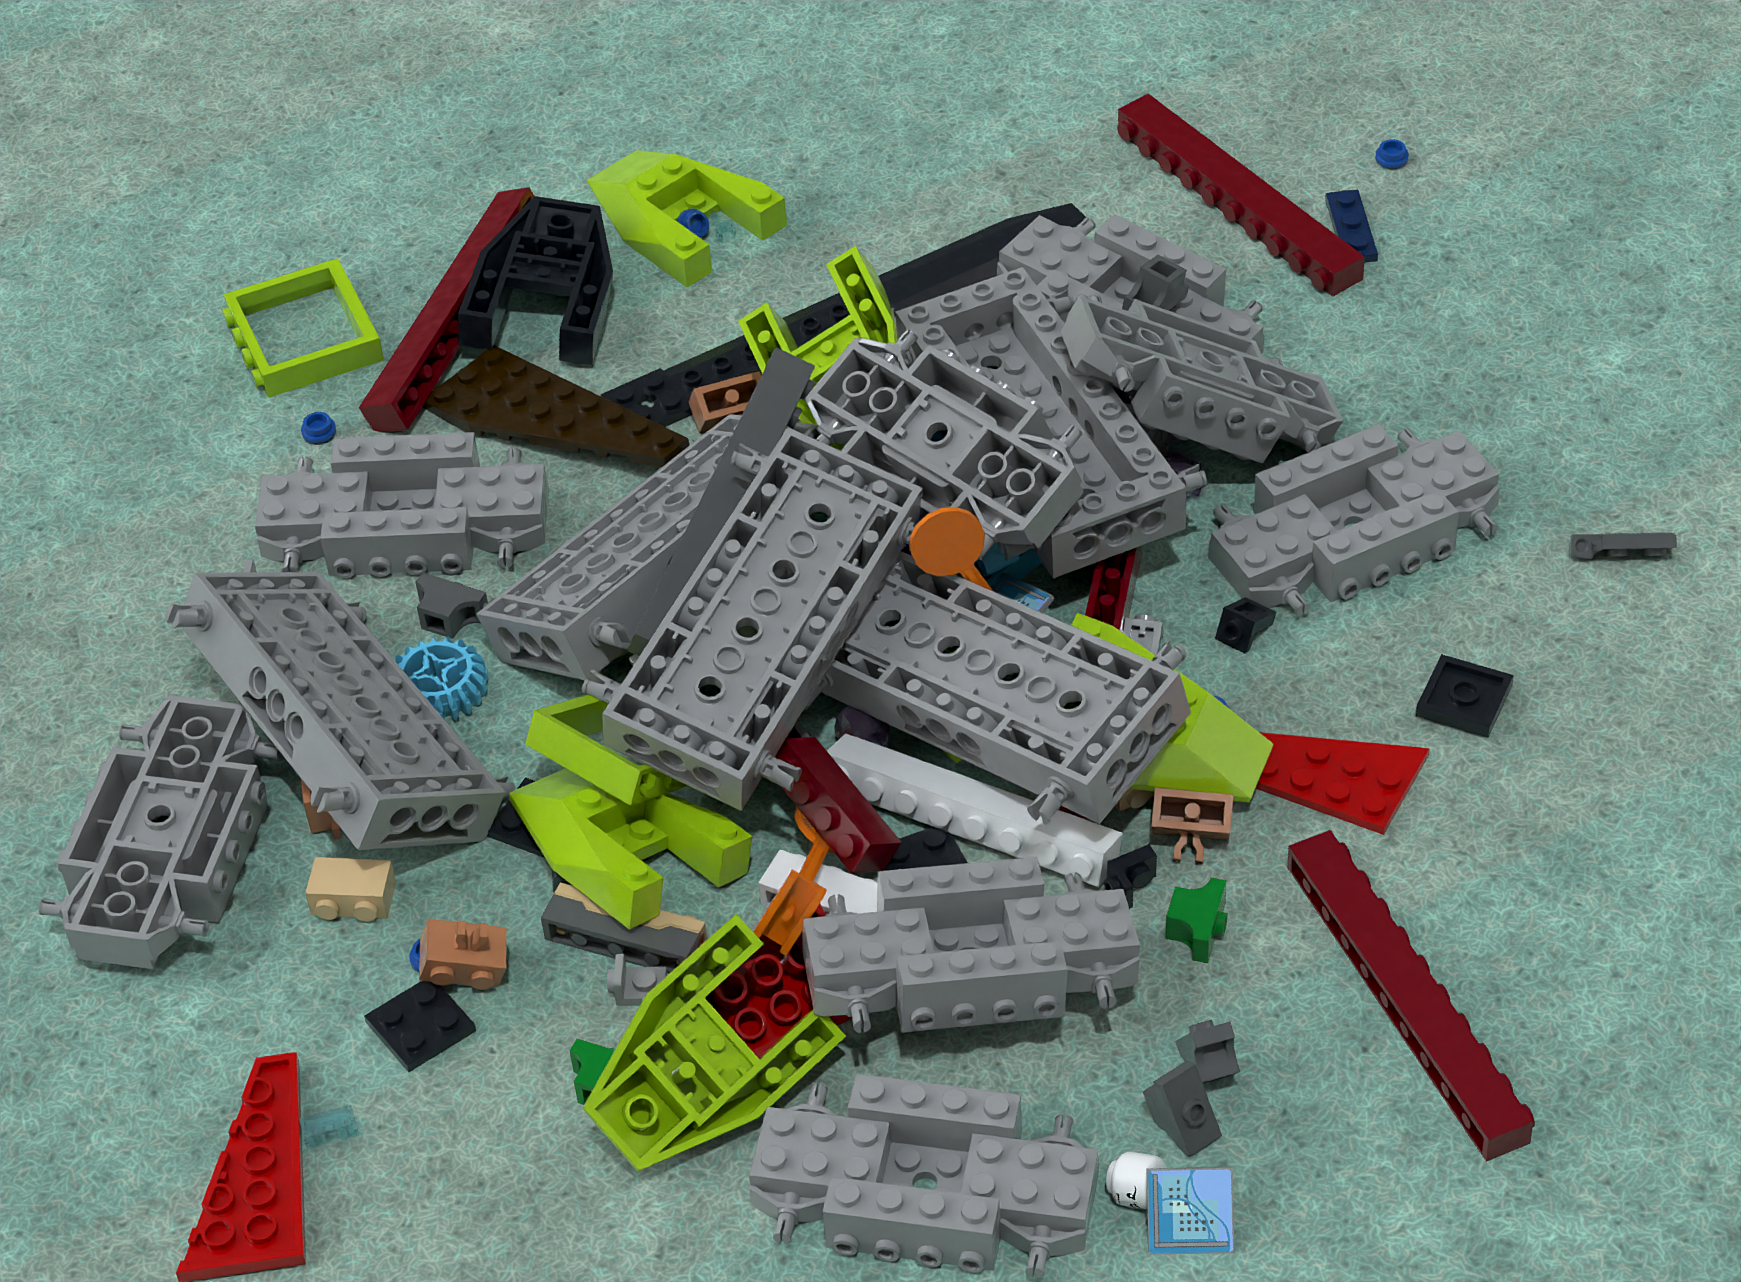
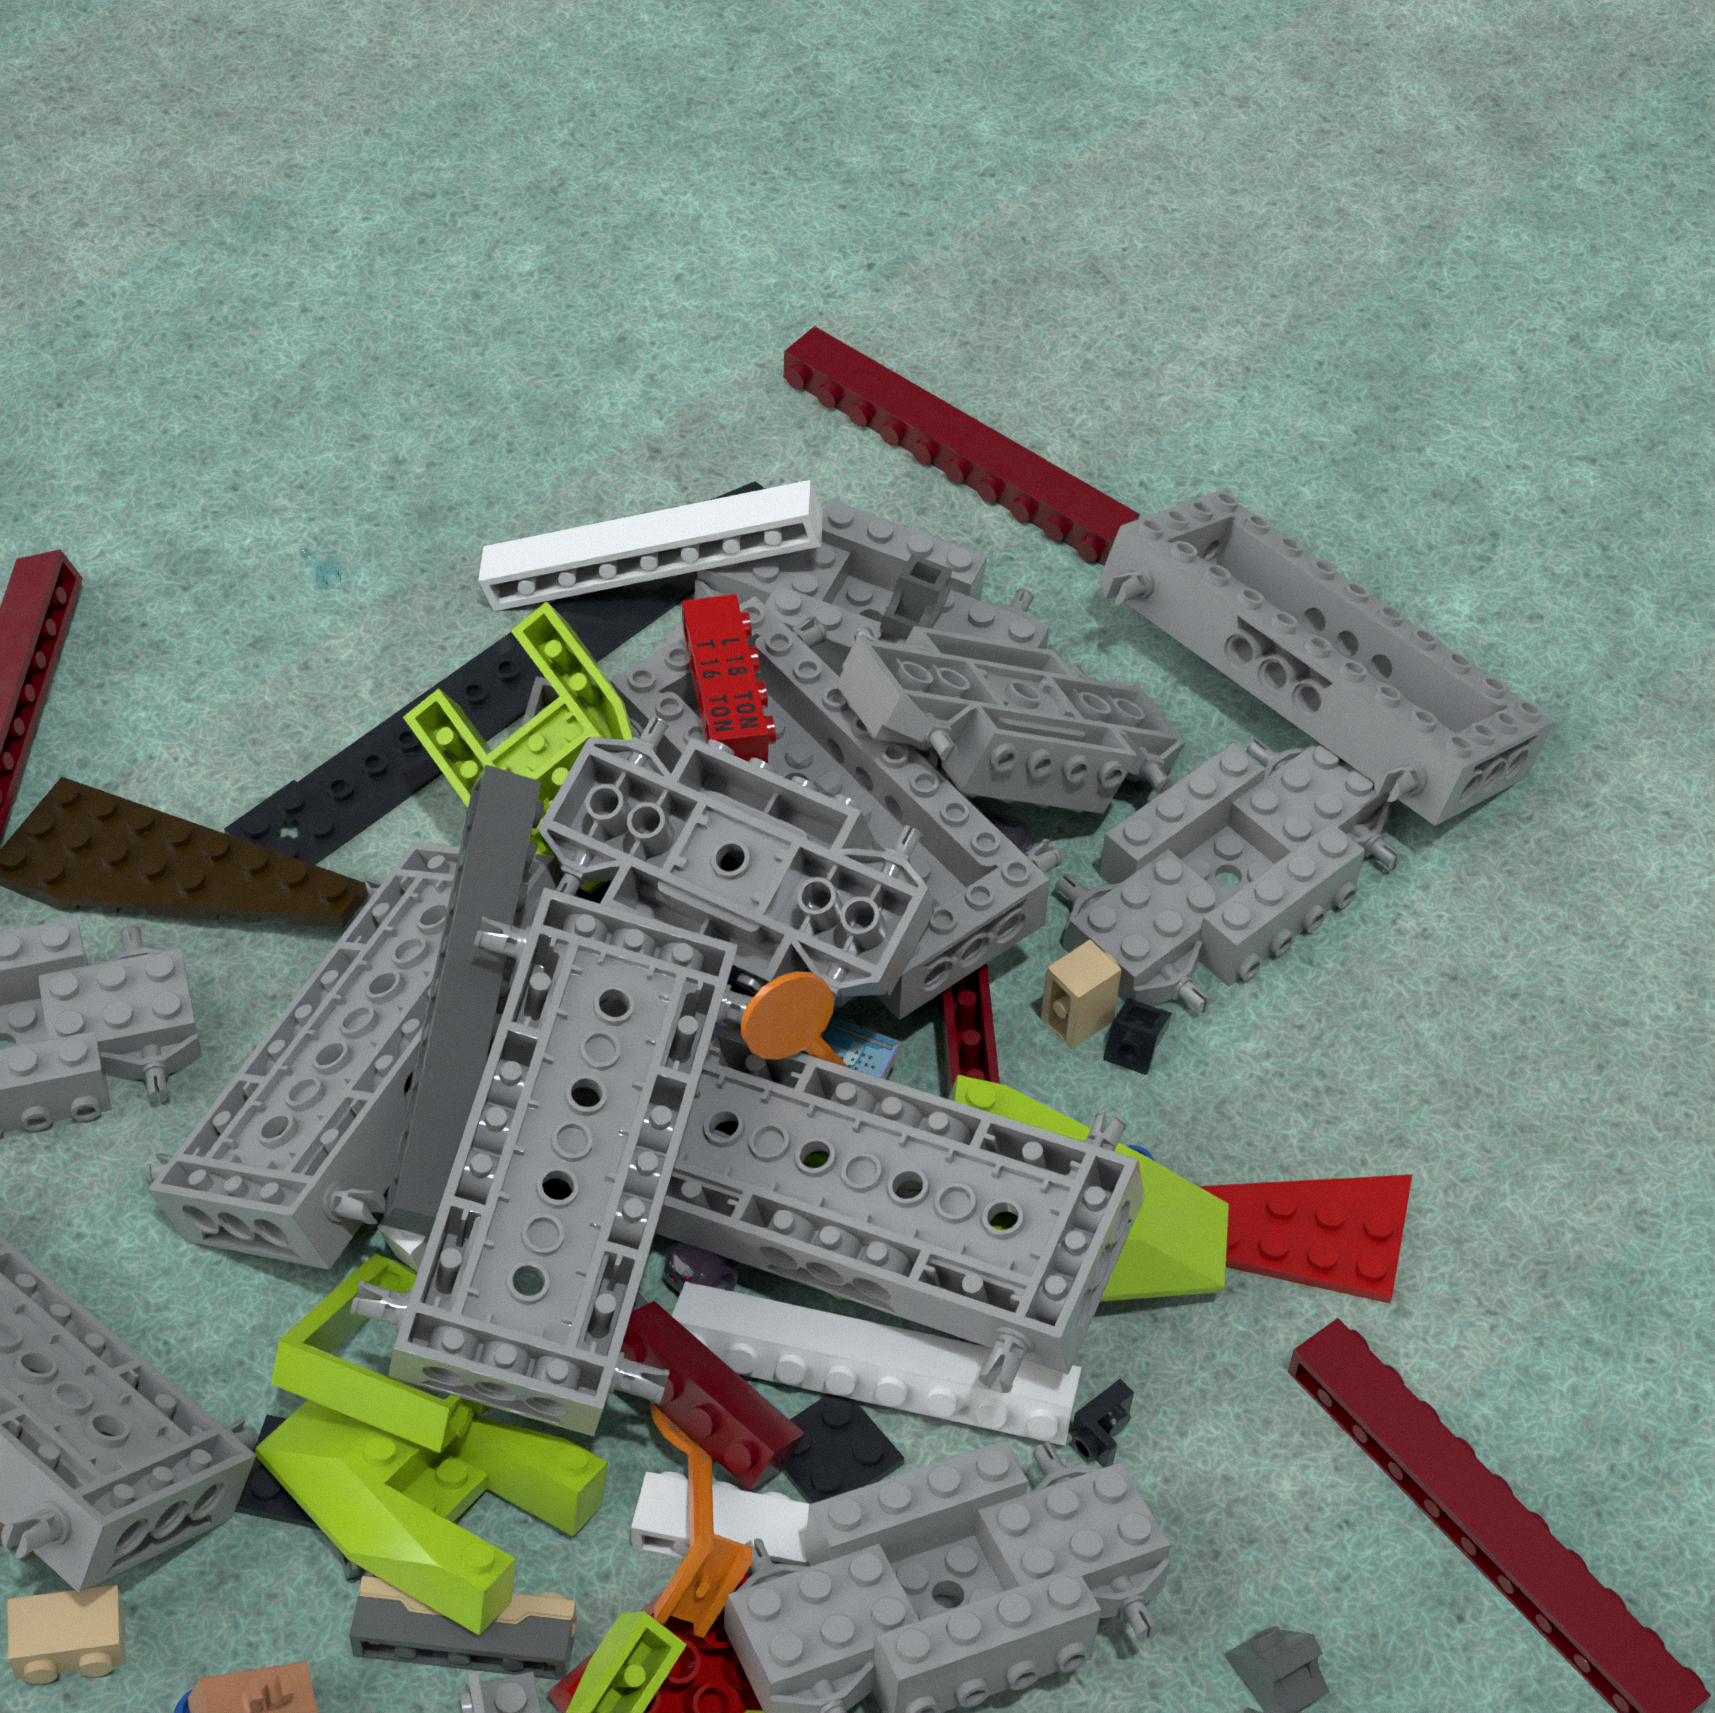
camera: 20 degrees left, 5 degrees up
(447, 605) = (96, 1172): dark grey brick -> none
(447, 675) = (125, 1263): medium azure gear -> none
(549, 250) = (117, 637): black wedge -> none
(651, 190) = (236, 535): lime wedge -> none
(694, 221) = (284, 571): blue plate -> none
(718, 400) = (401, 820): nougat brick -> none
(973, 231) = (652, 546): none -> white brick
(977, 313) = (725, 676): none -> red brick
(1145, 631) = (1022, 1071): light grey bracket -> none
(1191, 815) = (1157, 1326): nougat brick -> none
(1197, 917) = (1205, 1471): green brick -> none
(1204, 584) = (1081, 993): none -> tan brick
(1351, 222) = (1100, 465): dark blue plate -> none
(1392, 154) = (1123, 370): blue plate -> none
(1464, 695) = (1432, 1093): black plate -> none
(1478, 372) = (1254, 610): none -> light grey piece
(1619, 543) = (1549, 855): dark grey hinge -> none

